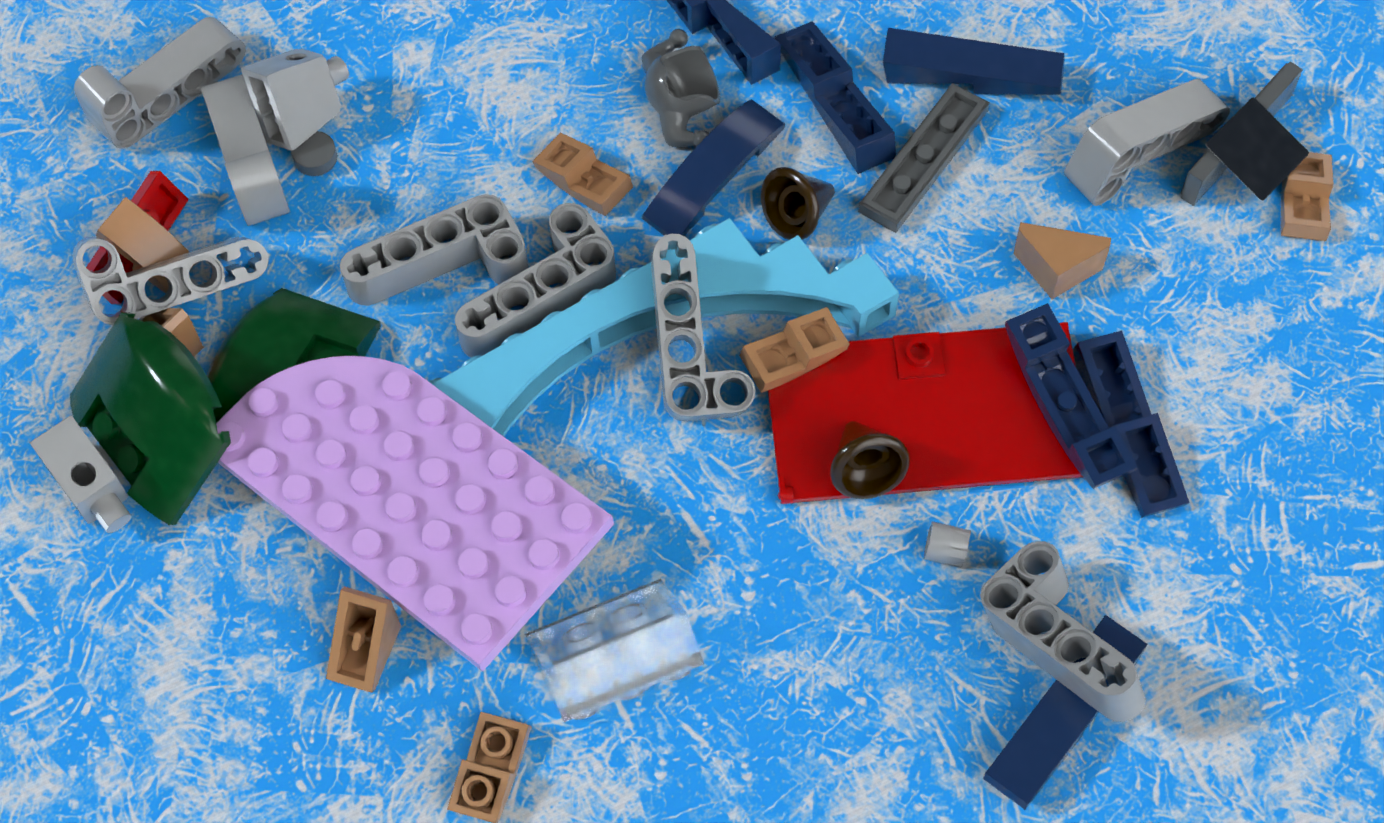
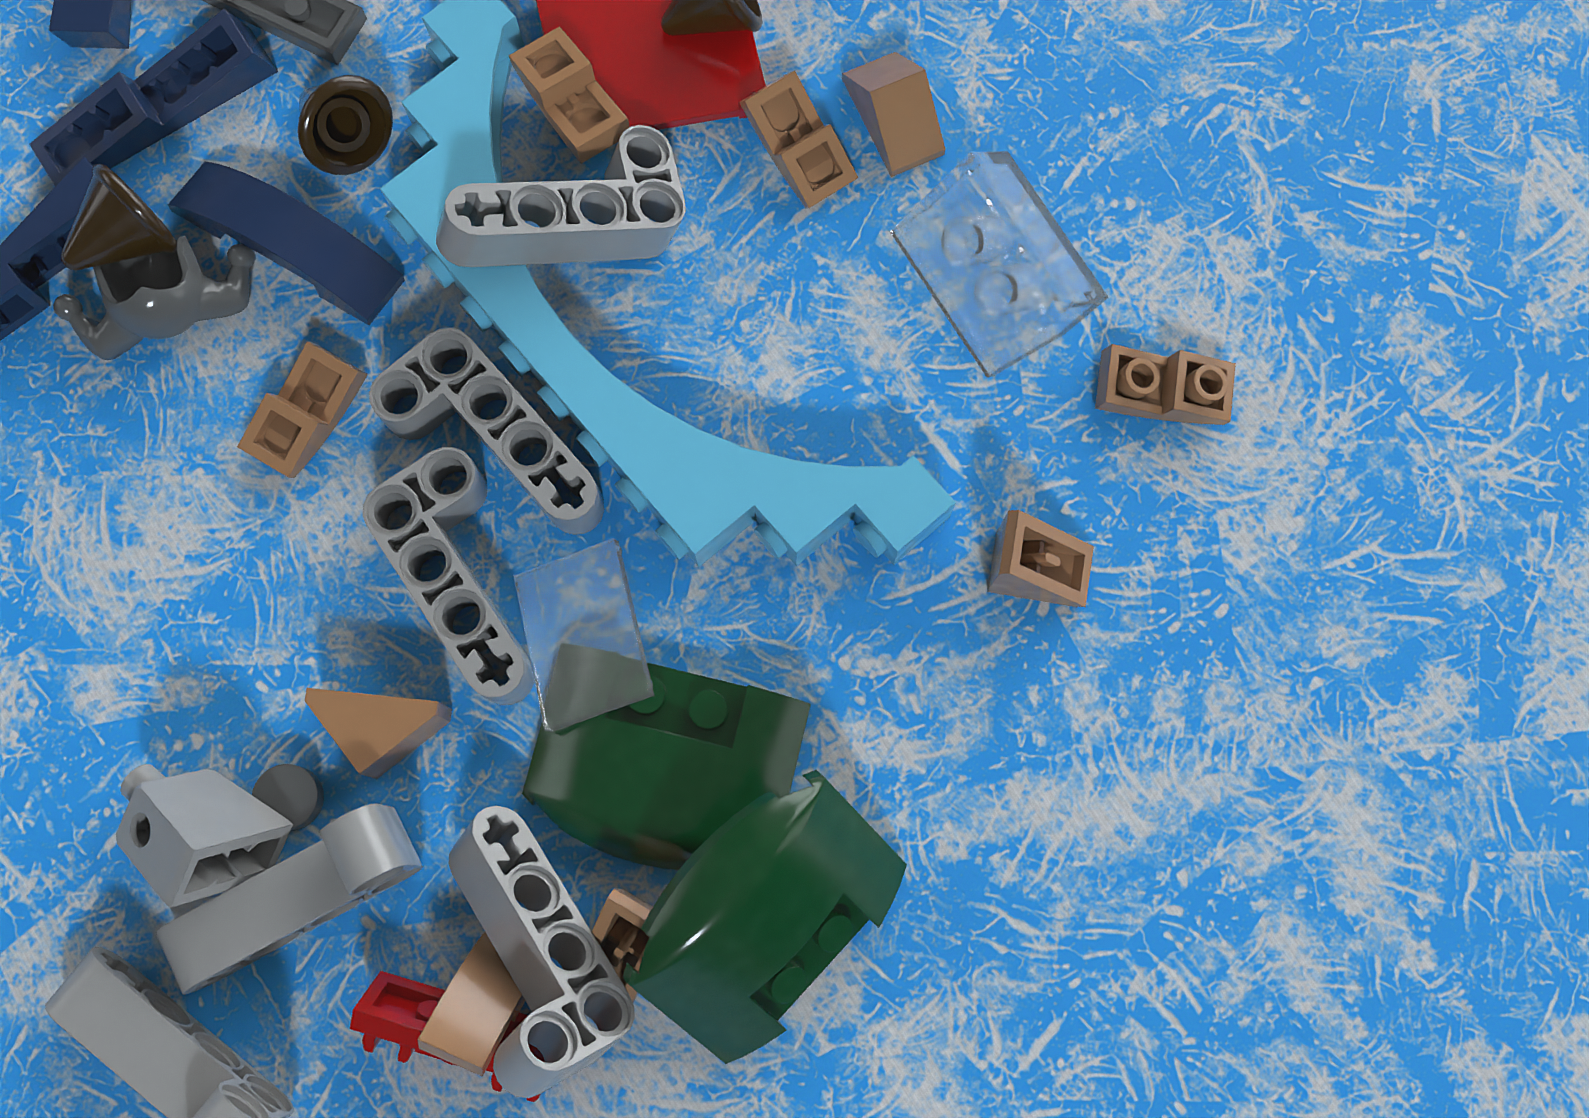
camera: 100 degrees left, 15 degrees up
(83, 474) = (853, 1009): light grey torso -> none
(346, 198) = (376, 728): none -> medium nougat slope
(378, 327) = (583, 635): none -> clear piece
(413, 495) = (843, 527): lavender plate -> none
(720, 59) = (113, 225): none -> dark brown hat
(746, 518) = (798, 141): none -> medium nougat slope
(764, 591) = (897, 111): none -> medium nougat slope

